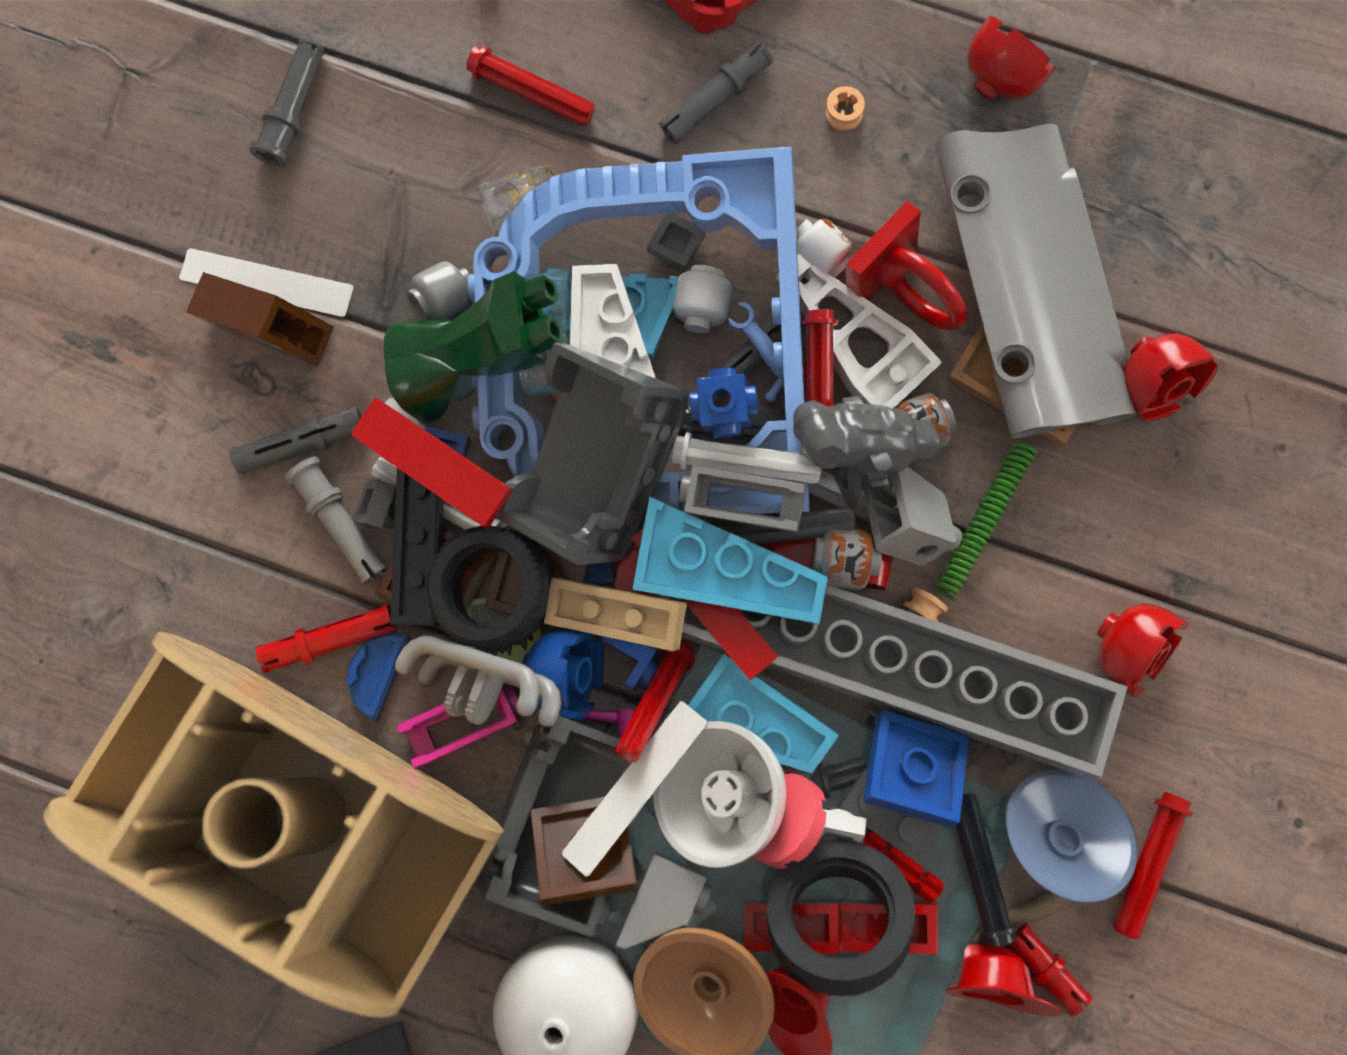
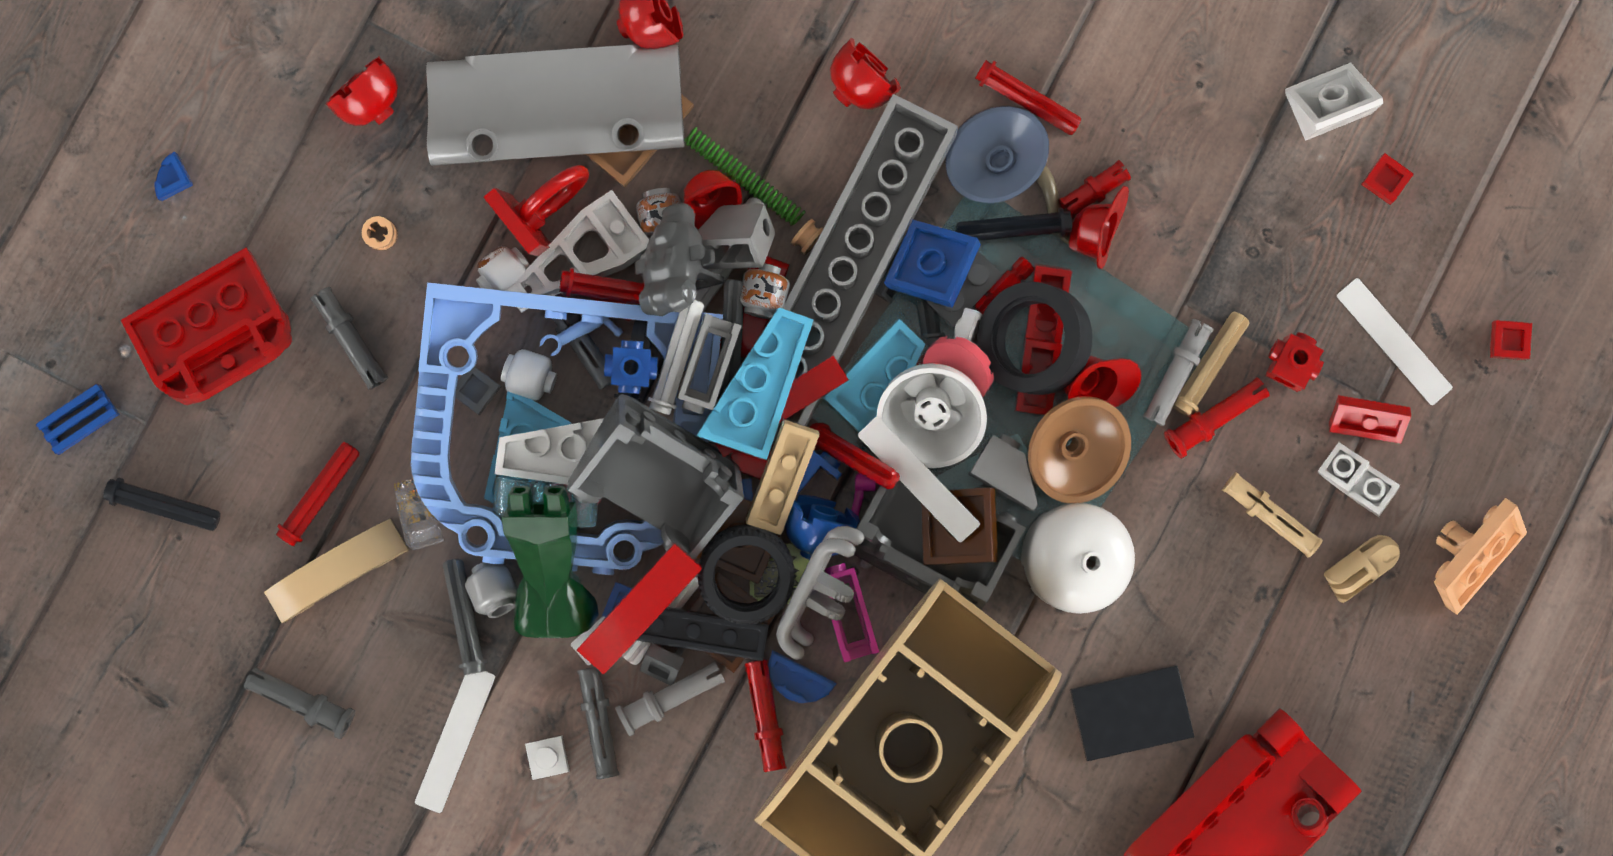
camera: 85 degrees left, 5 degrees up
(253, 388) = (547, 757): none -> white plate
(260, 318) = (490, 744): reddish brown slope -> none
(402, 269) = (463, 618): none -> dark grey axle
(445, 119) = (335, 569): none -> tan slope
(959, 476) = (709, 192): none -> red helmet

